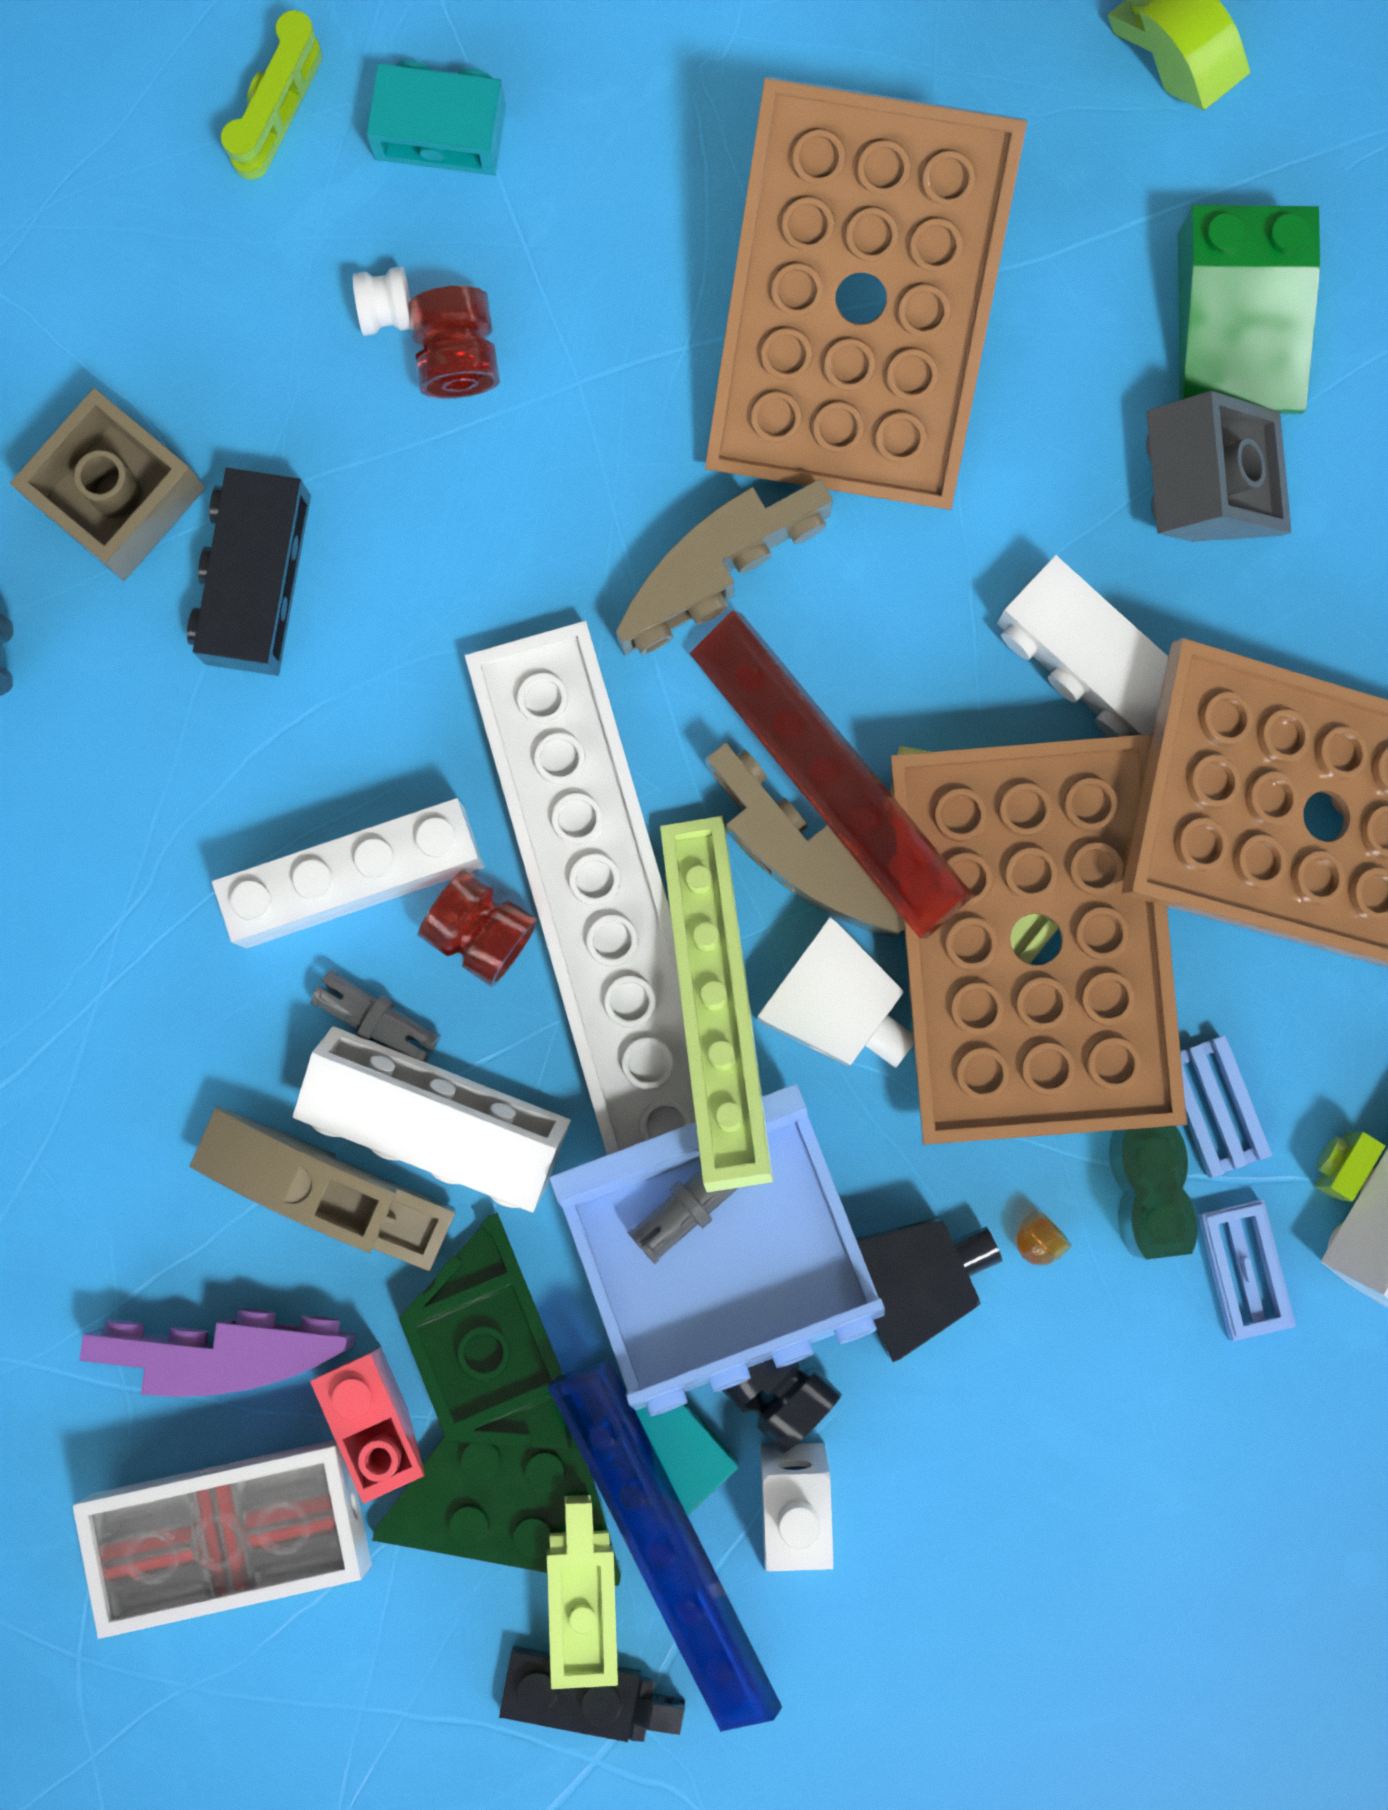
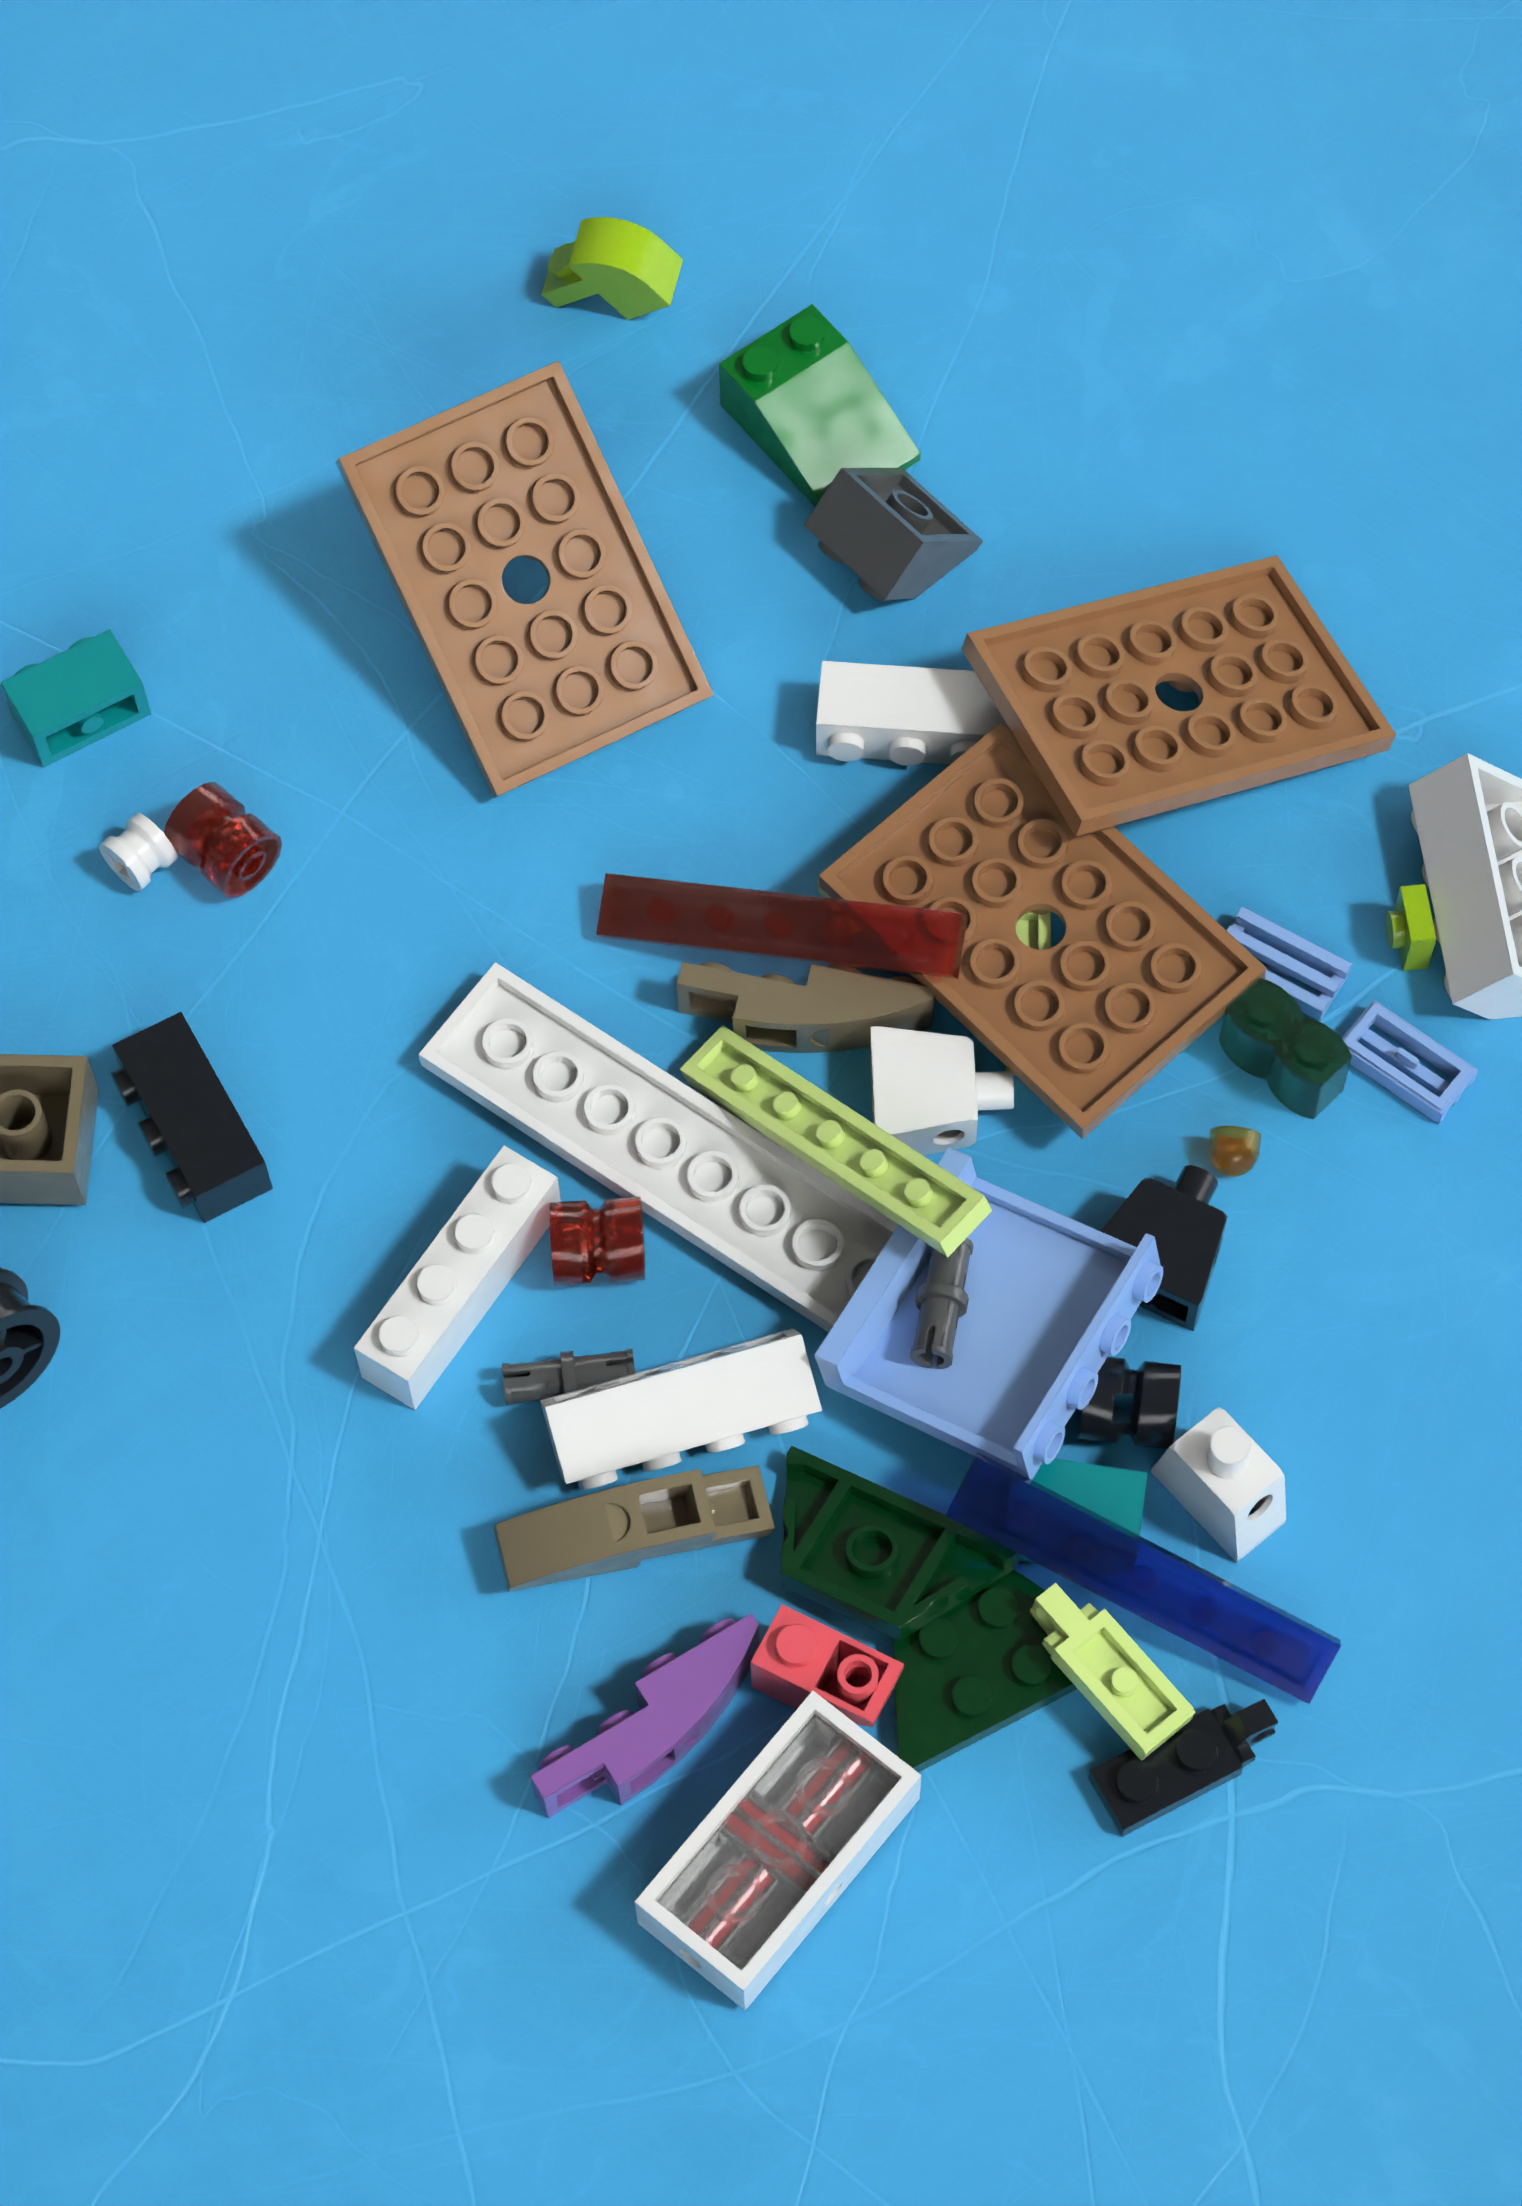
camera: 40 degrees left, 20 degrees down
(695, 573) = (558, 850): dark tan slope -> none

